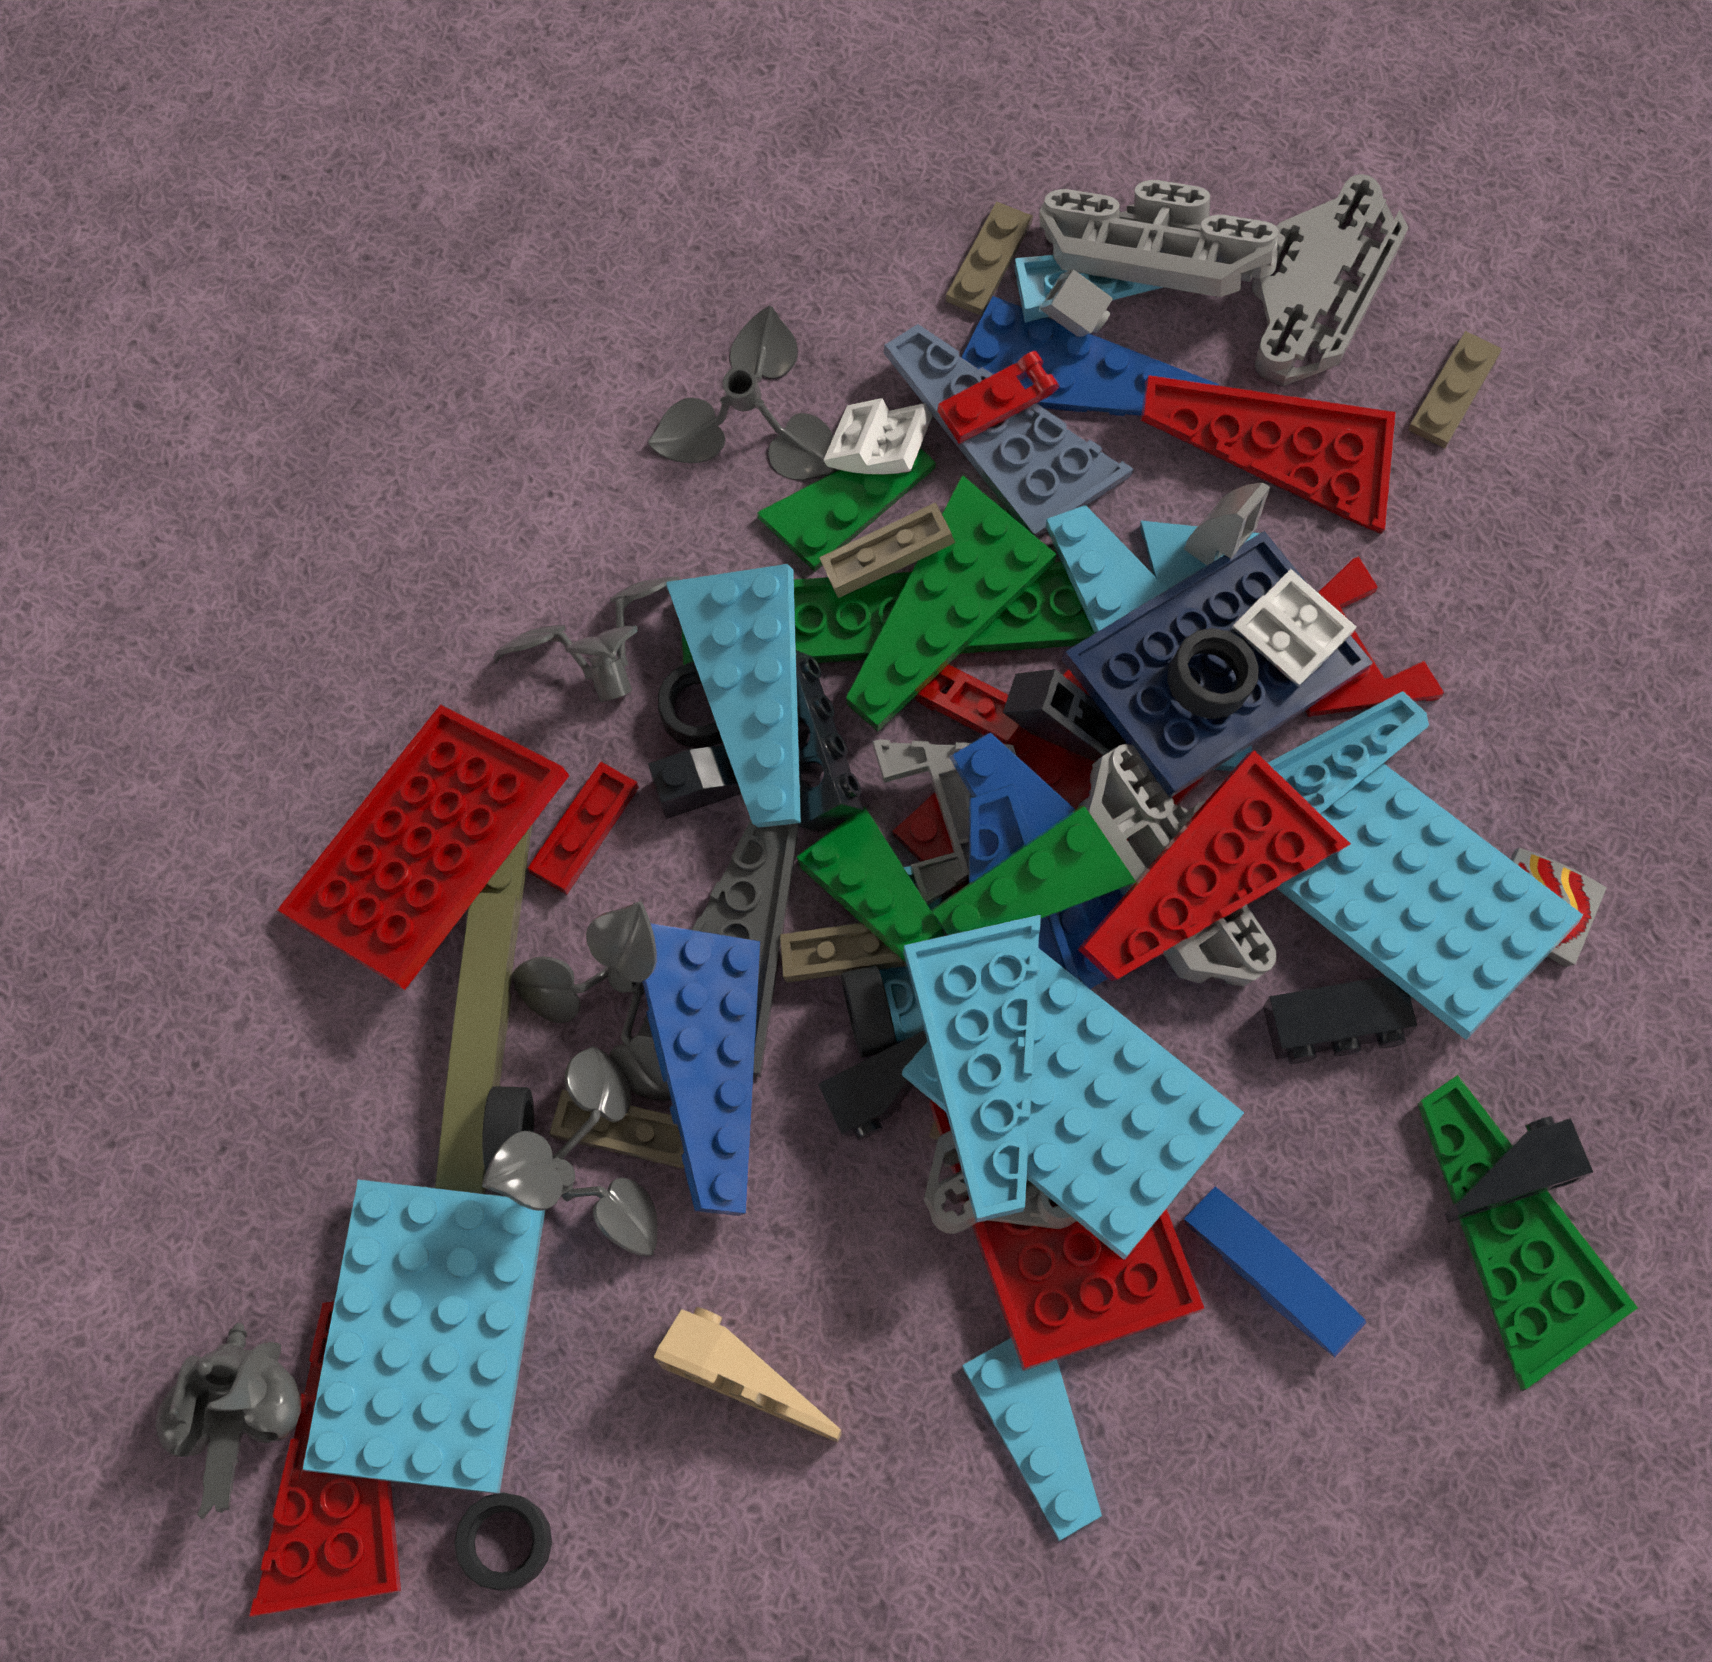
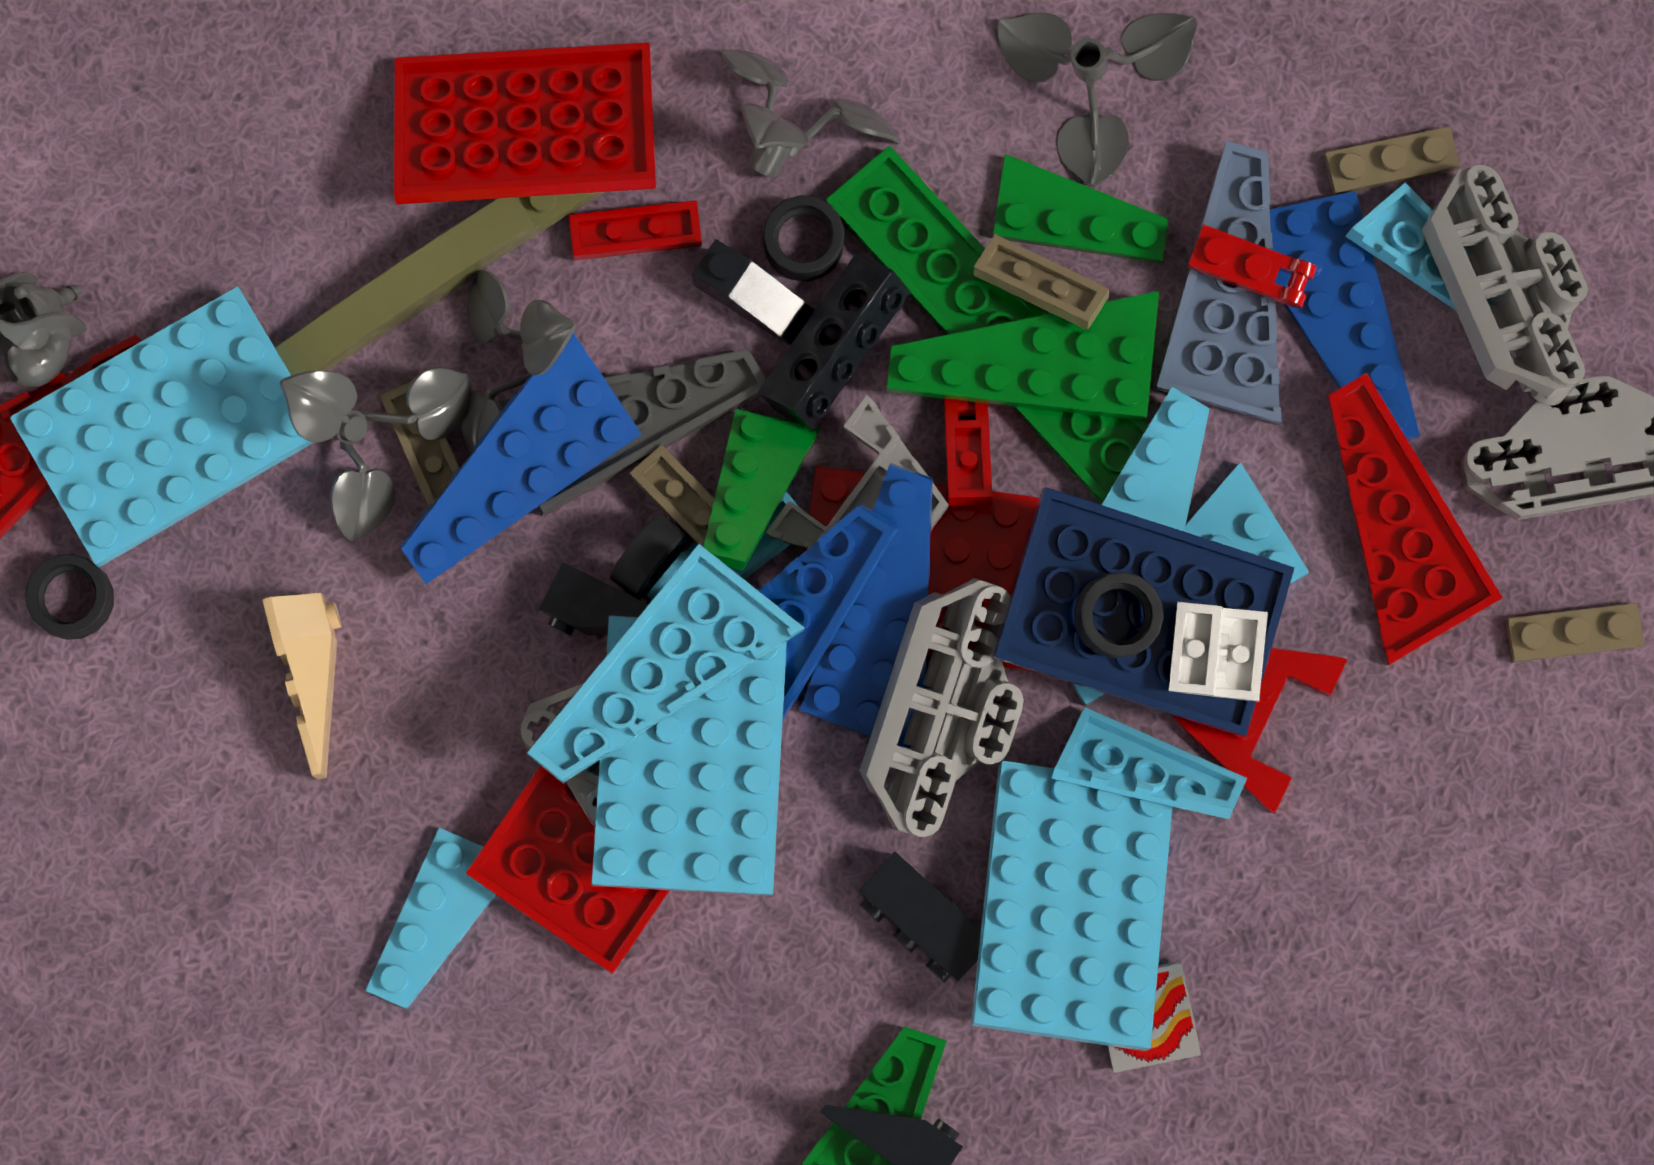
camera: 50 degrees right, 10 degrees up
(505, 1114) = (361, 358): black tyre -> none
(746, 659) = (858, 245): medium azure wing -> none
(878, 439) = (1144, 198): white slope -> none
(1041, 878) = (842, 607): green wing -> none
(1061, 714) = (996, 522): black slope -> none
(1077, 304) = (1386, 267): light grey brick -> none
(1228, 524) = (1267, 535): light grey slope -> none
(1228, 854) = (975, 735): red wing -> none
(1275, 1271) = (682, 1007): blue slope -> none

